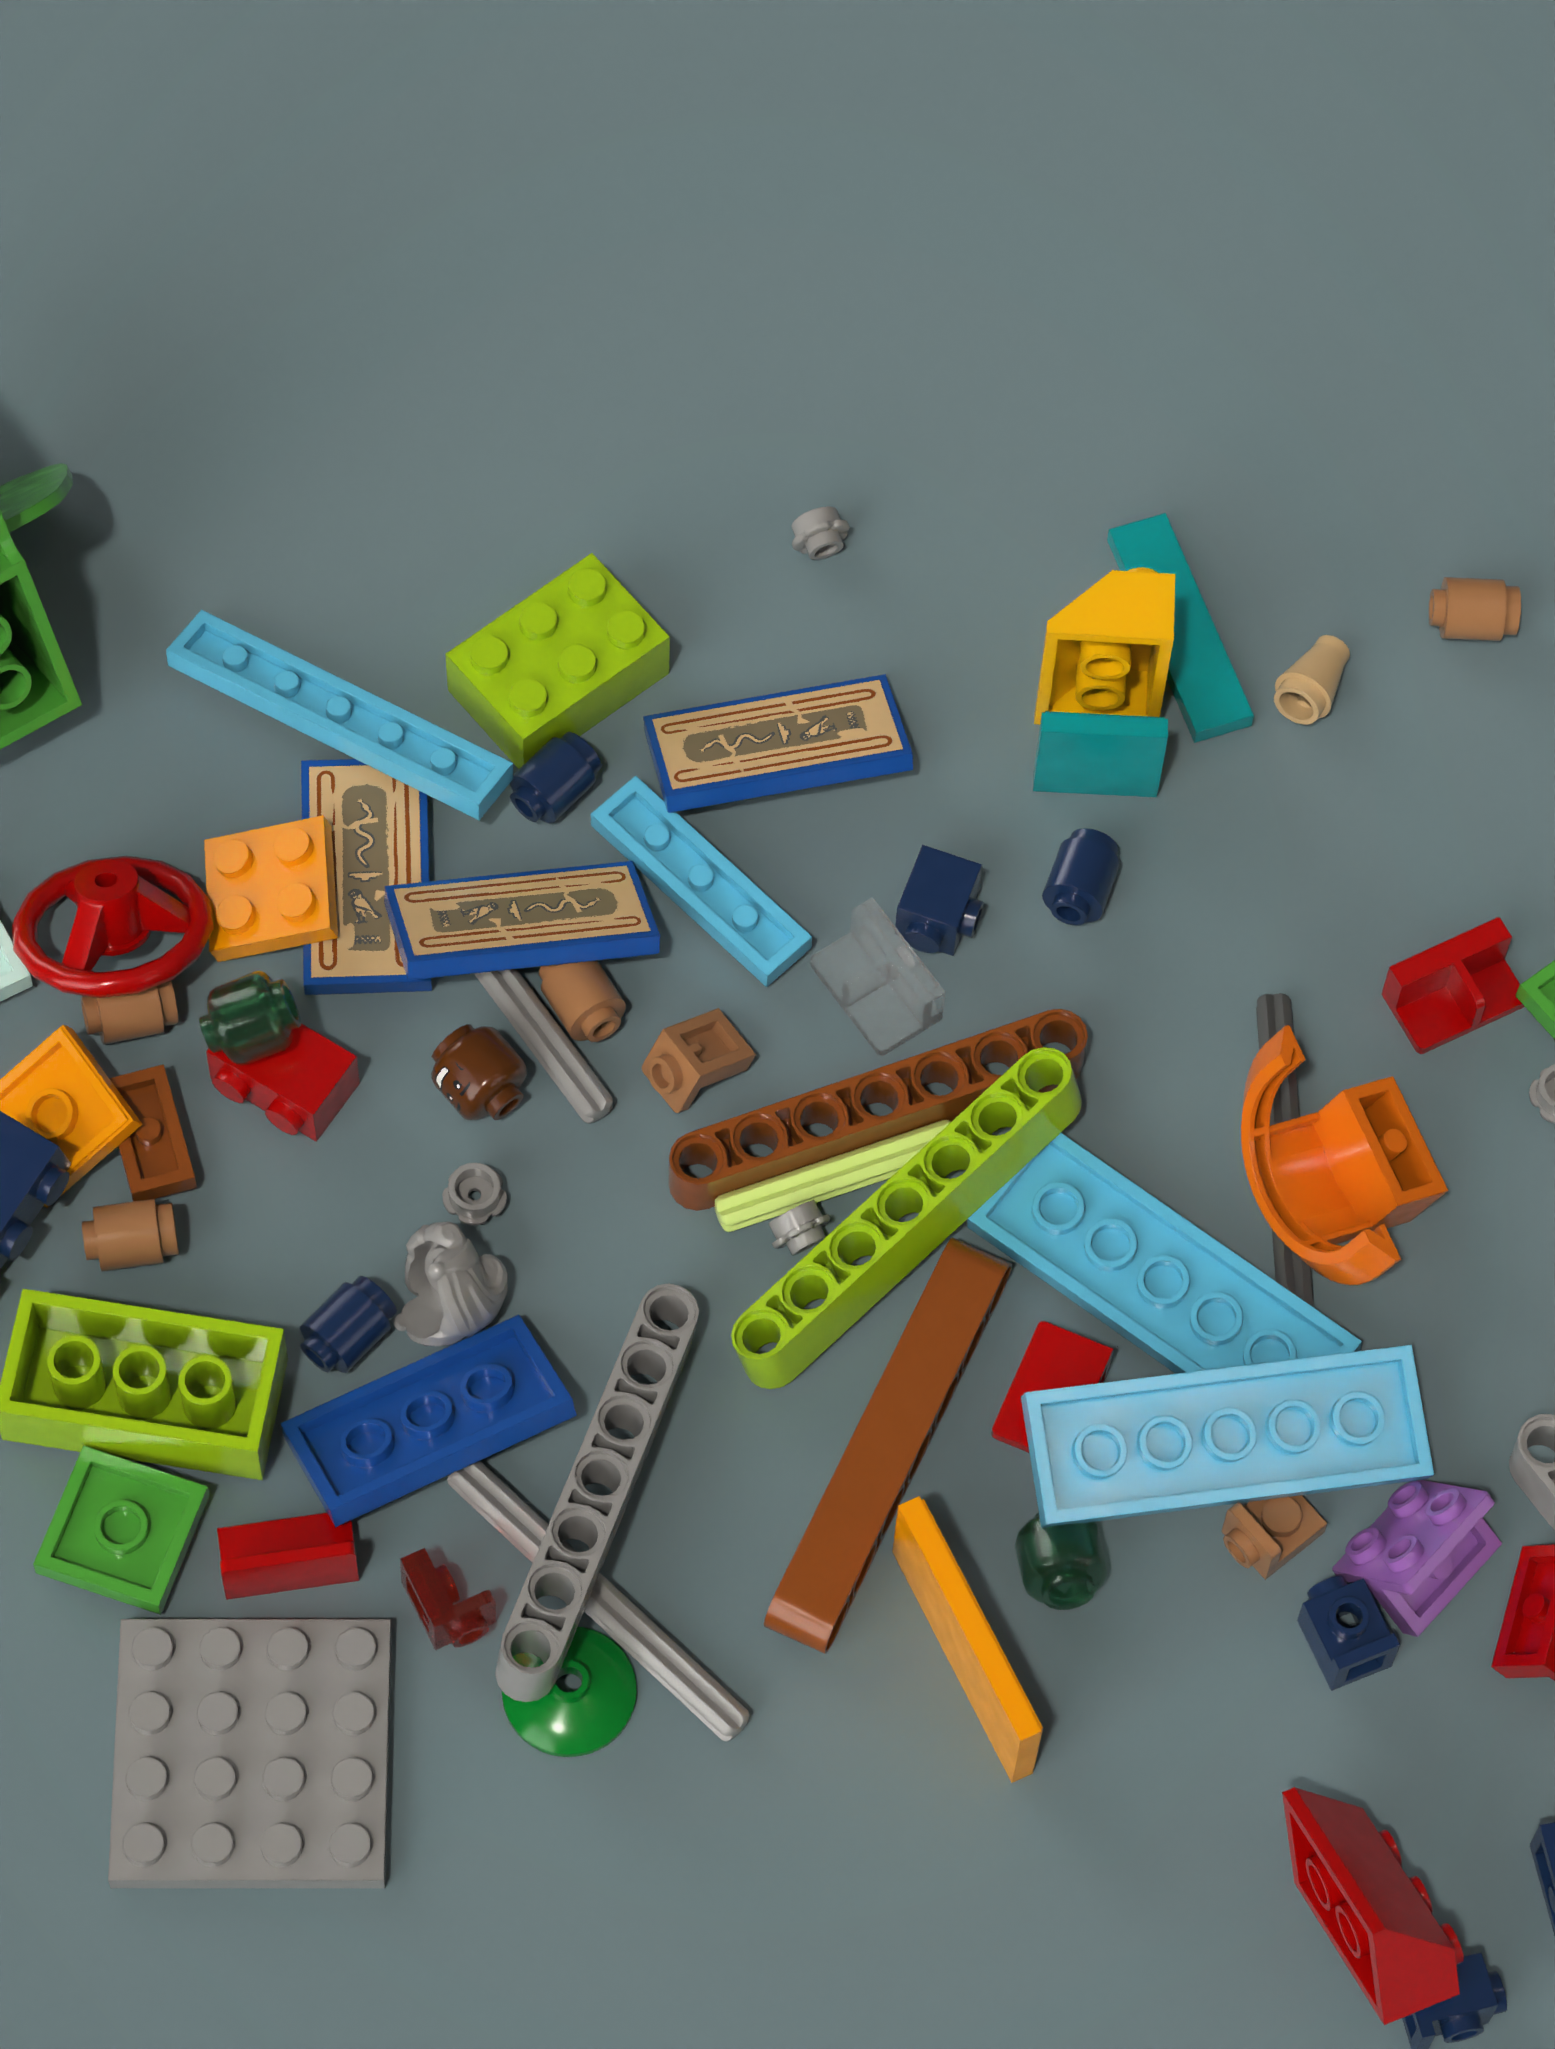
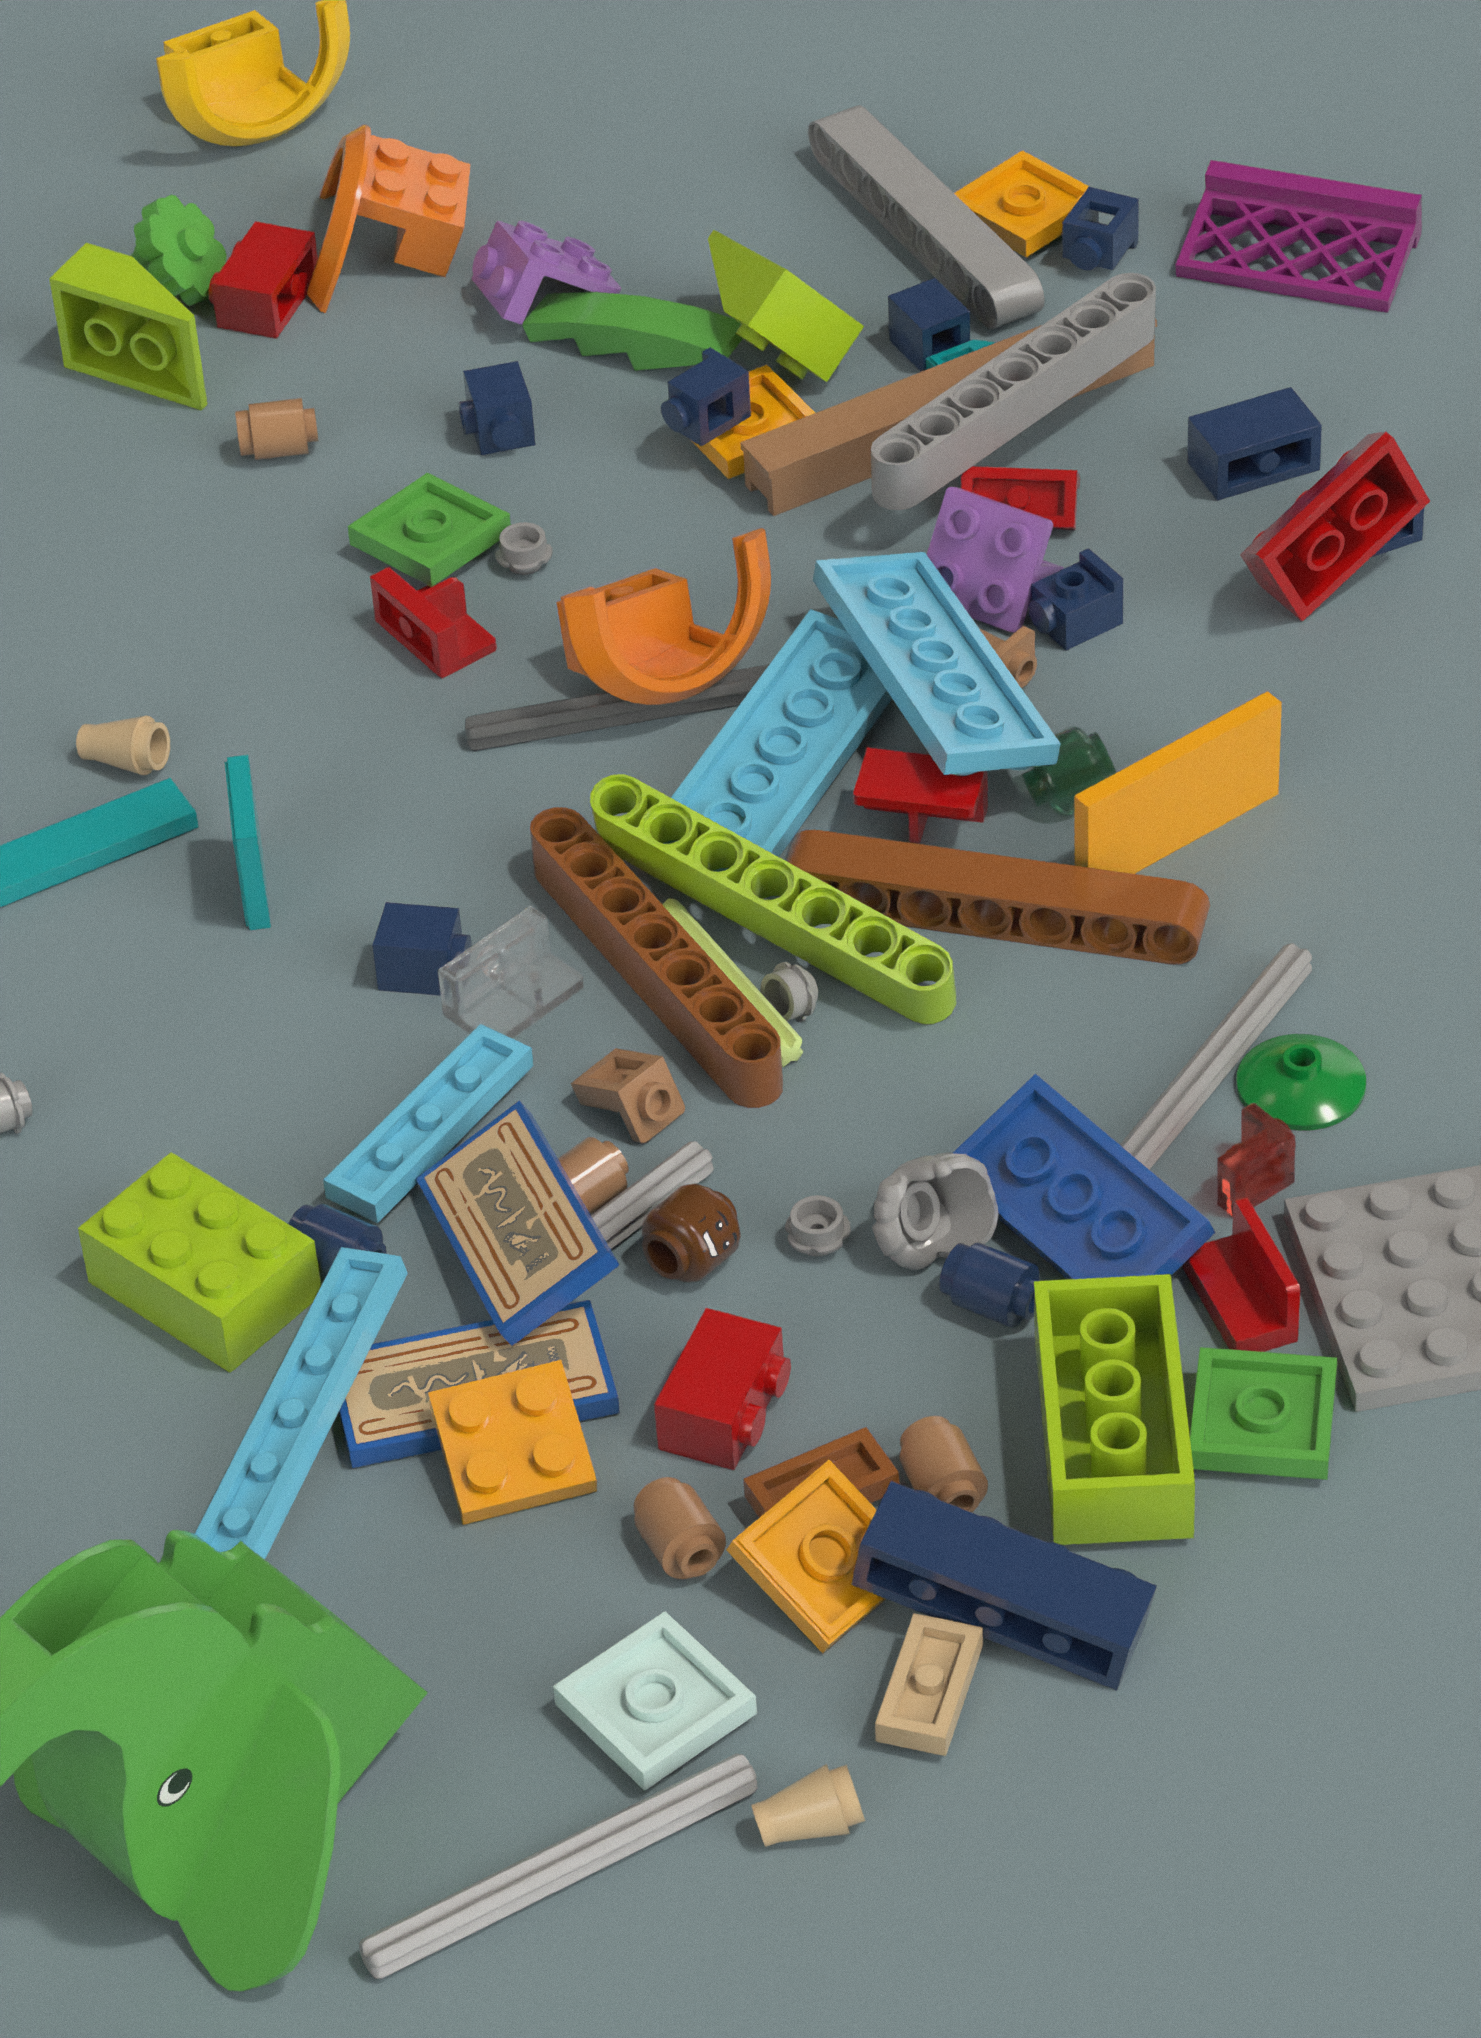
camera: 95 degrees left, 20 degrees down
(114, 917) = (588, 1547): red piece -> none
(250, 1018) = (698, 1367): clear green head -> none
(592, 1516) = (1118, 1053): light grey beam -> none
(777, 743) = (265, 1087): tile -> none
(1082, 877) = (371, 861): dark blue brick -> none
(1110, 647) = (142, 822): yellow slope -> none
(1475, 609) = (32, 651): medium nougat brick -> none

